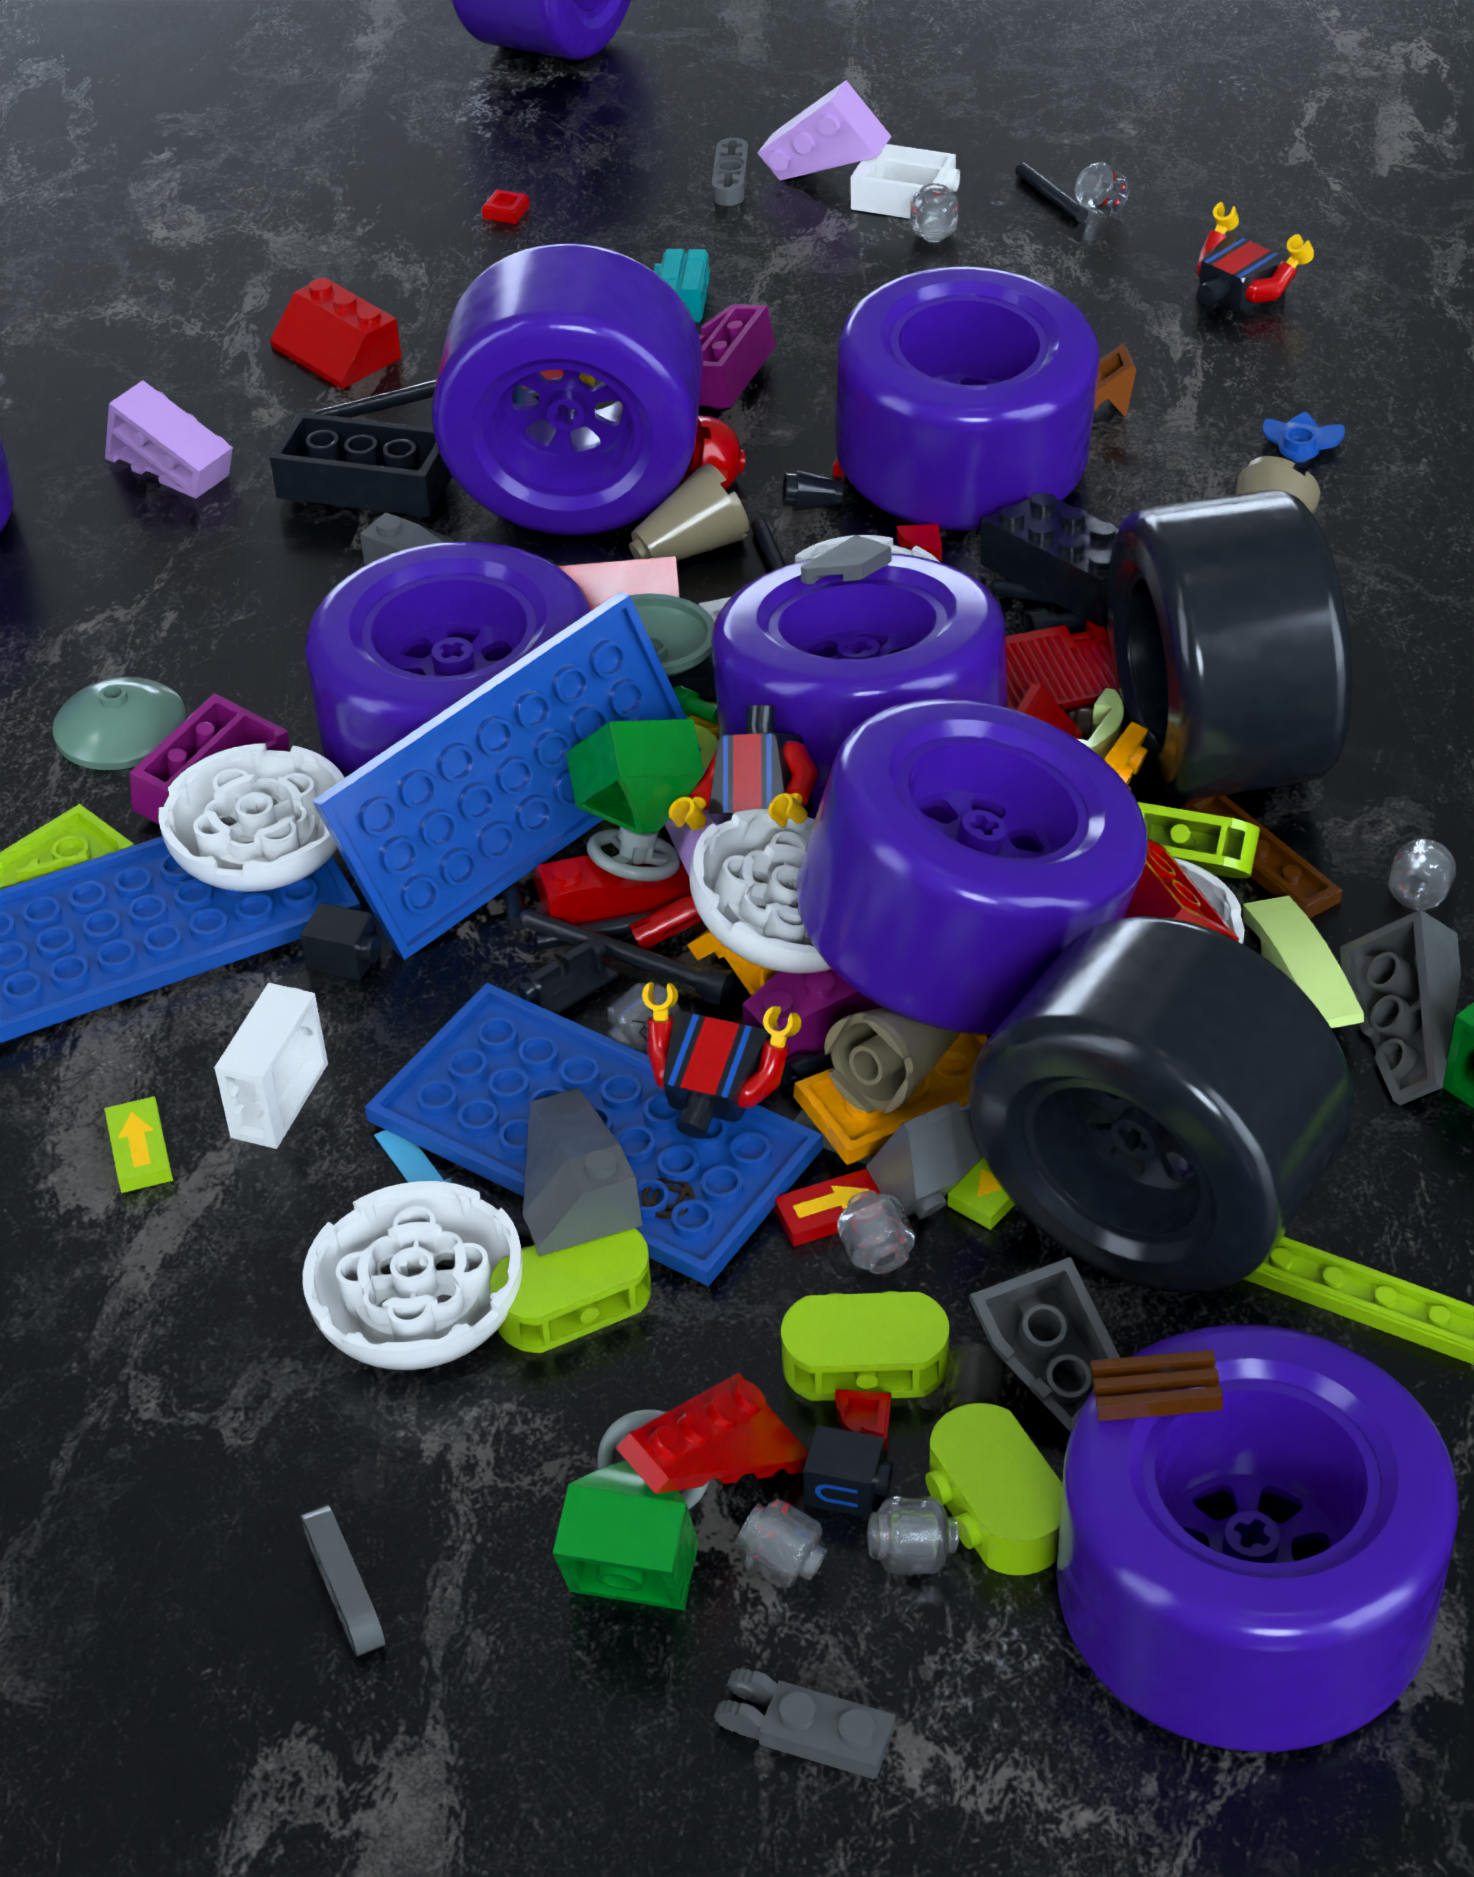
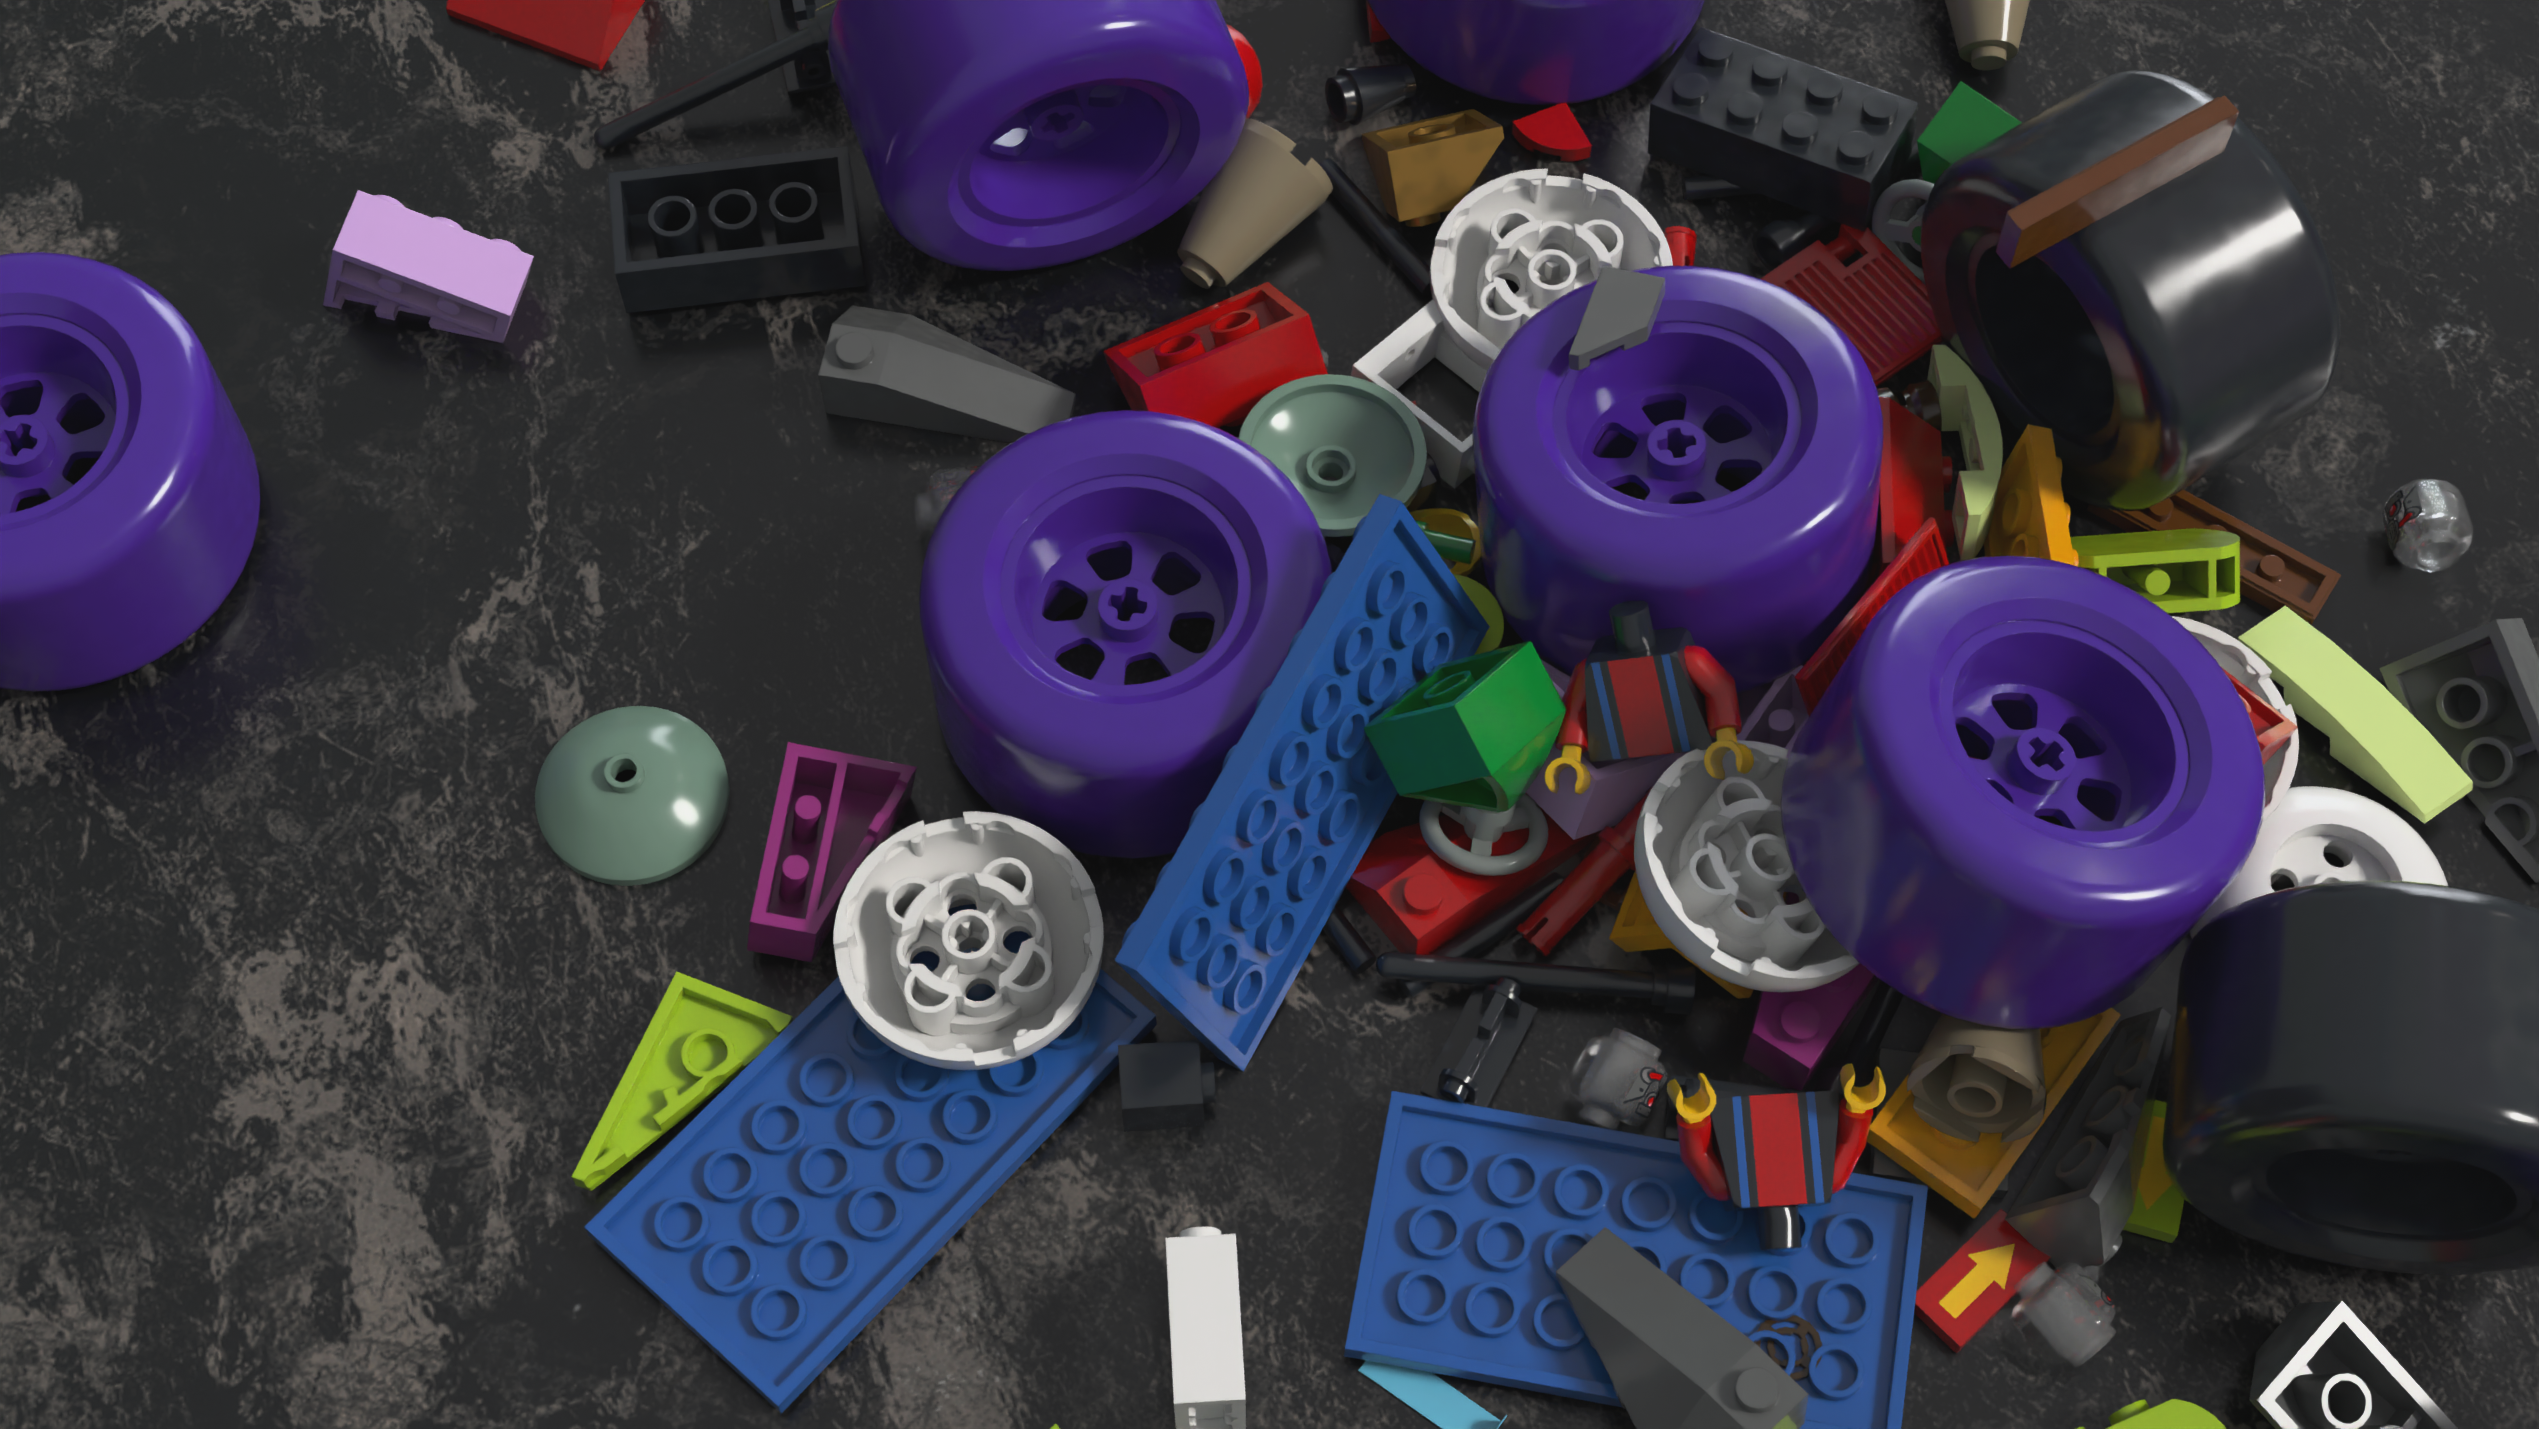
camera: 25 degrees left, 20 degrees up
(819, 522) = (1430, 163): none -> pearl gold slope
(1188, 507) = (2116, 181): none -> reddish brown tile

